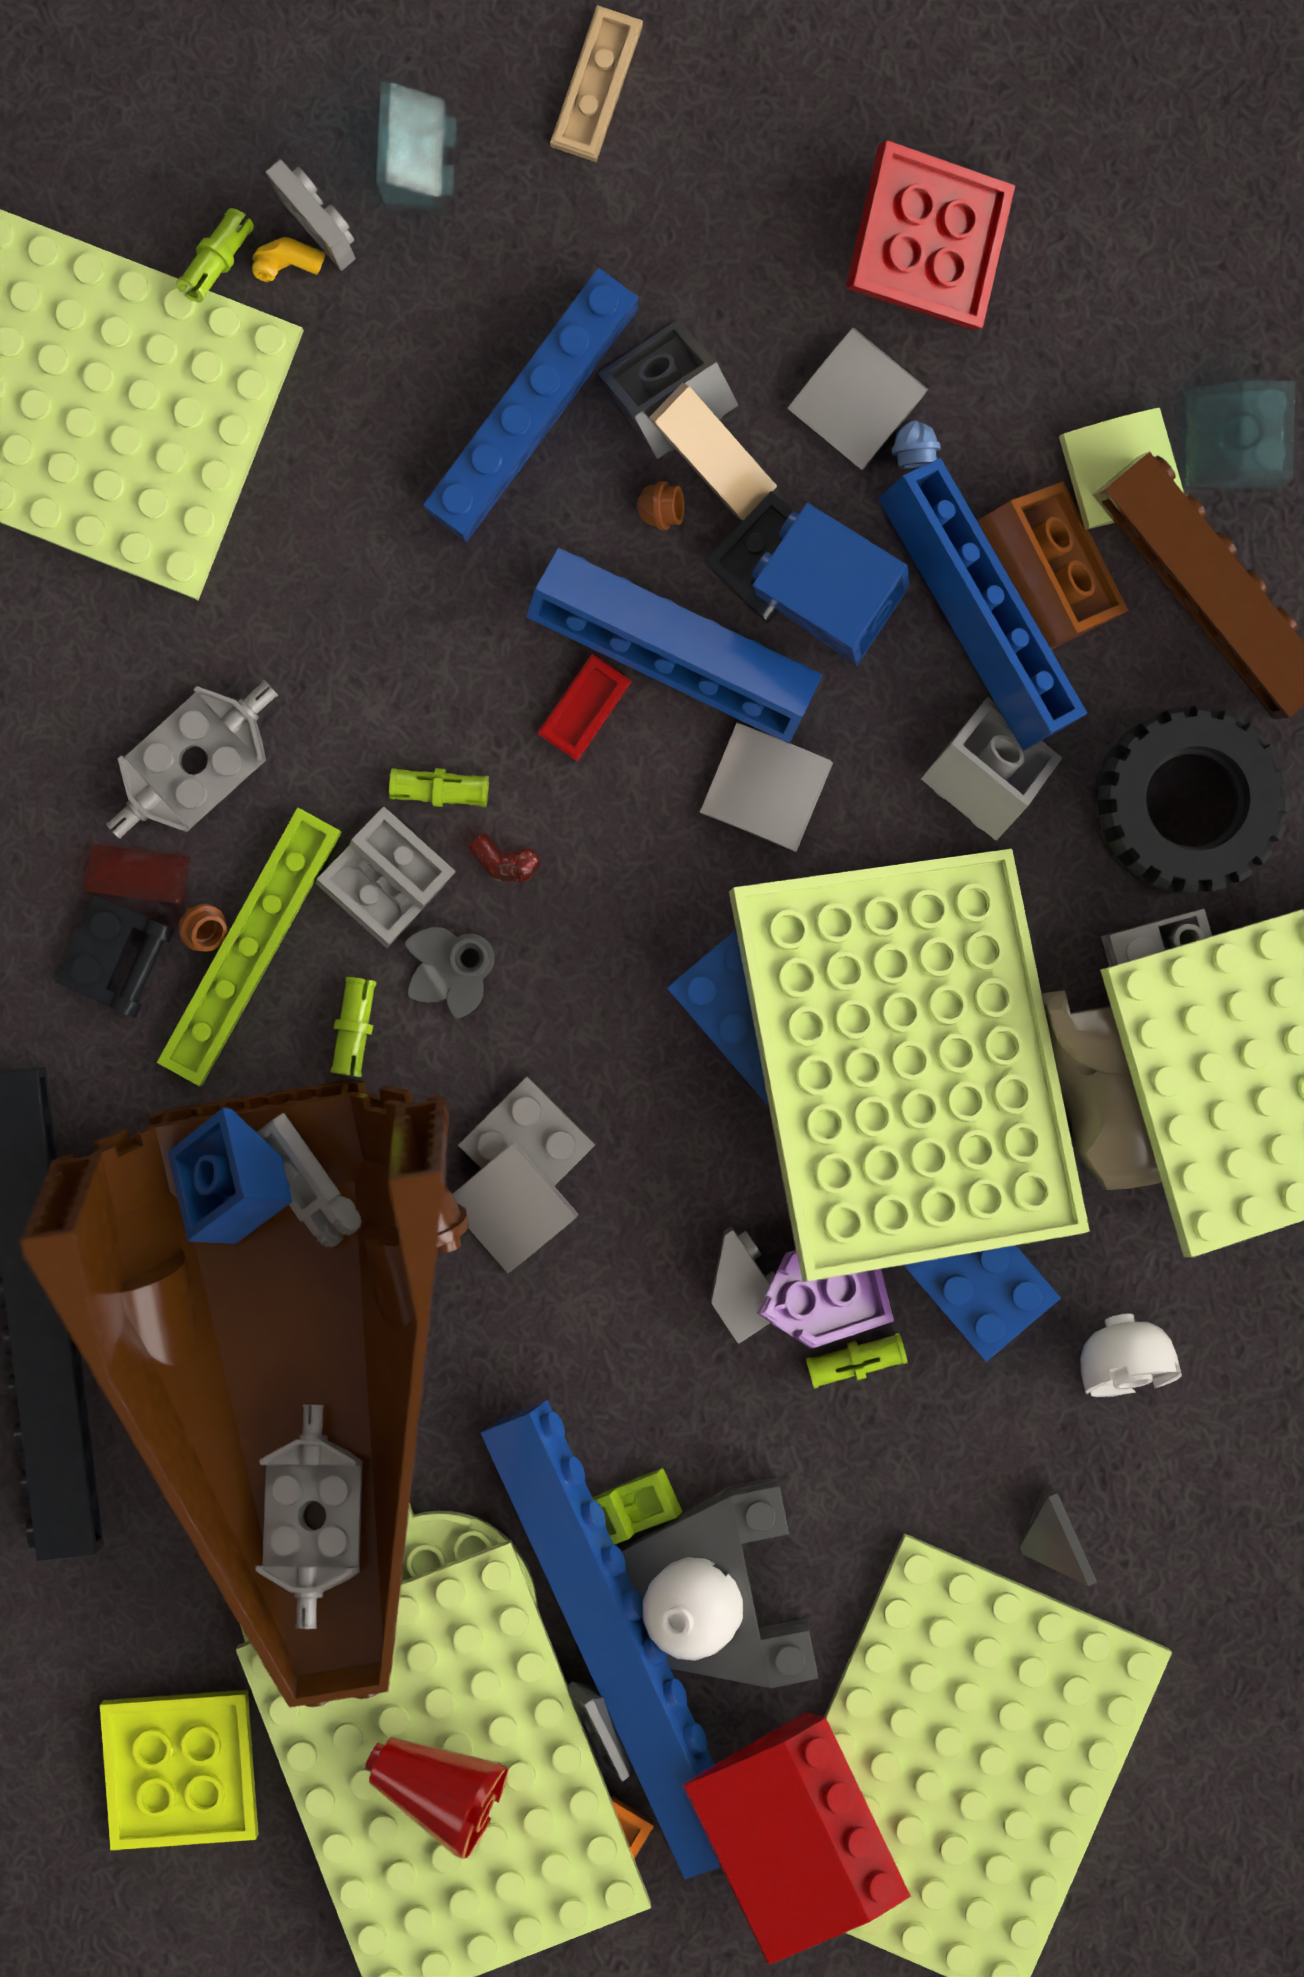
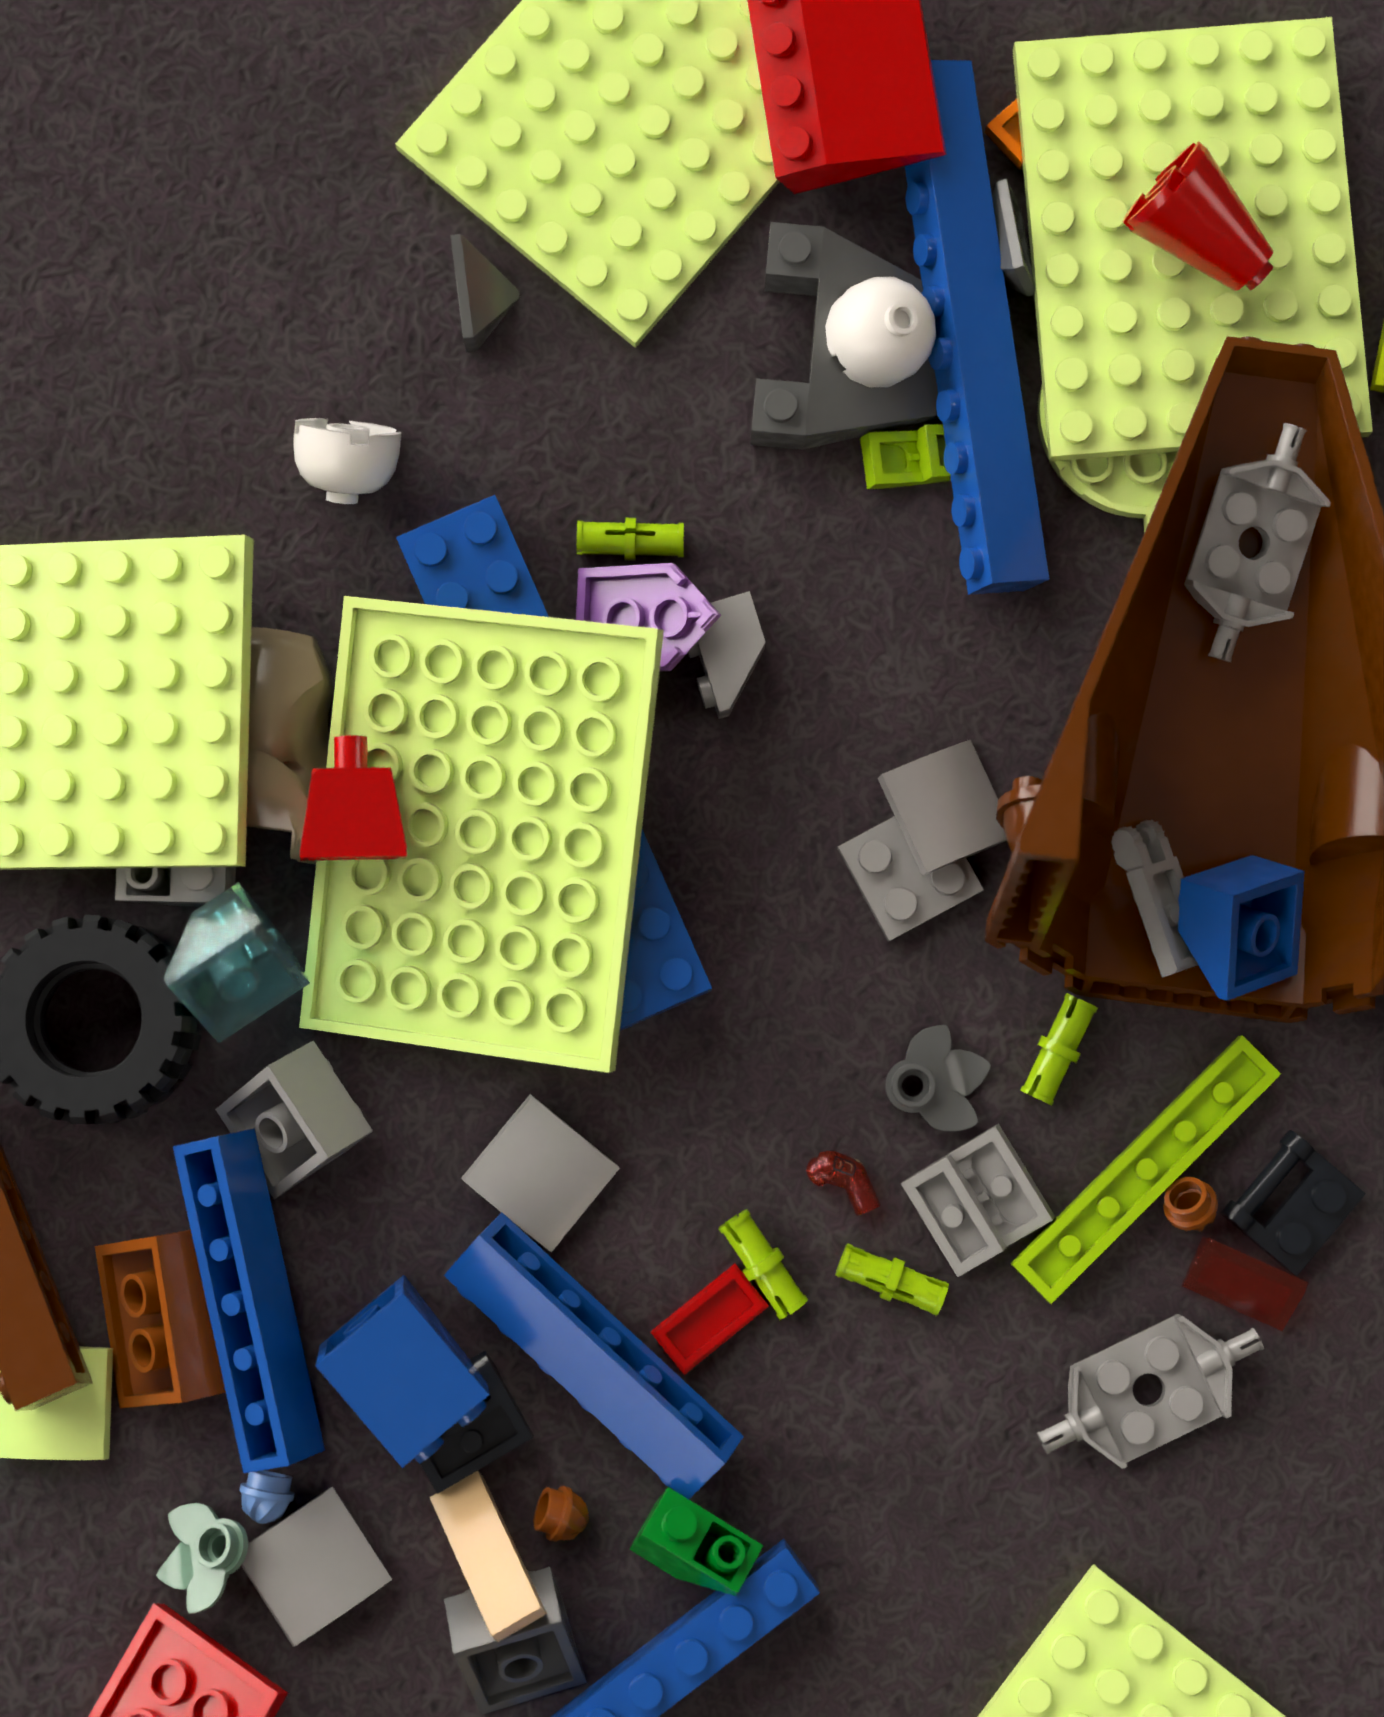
camera: 165 degrees left, 5 degrees down
(539, 513) = (695, 1545): none -> green slope
(552, 767) = (763, 1264): none -> lime pin
(955, 375) = (199, 1558): none -> plate
(1023, 1047) = (352, 809): none -> red torso
(1085, 884) = (232, 964): none -> clear light blue slope

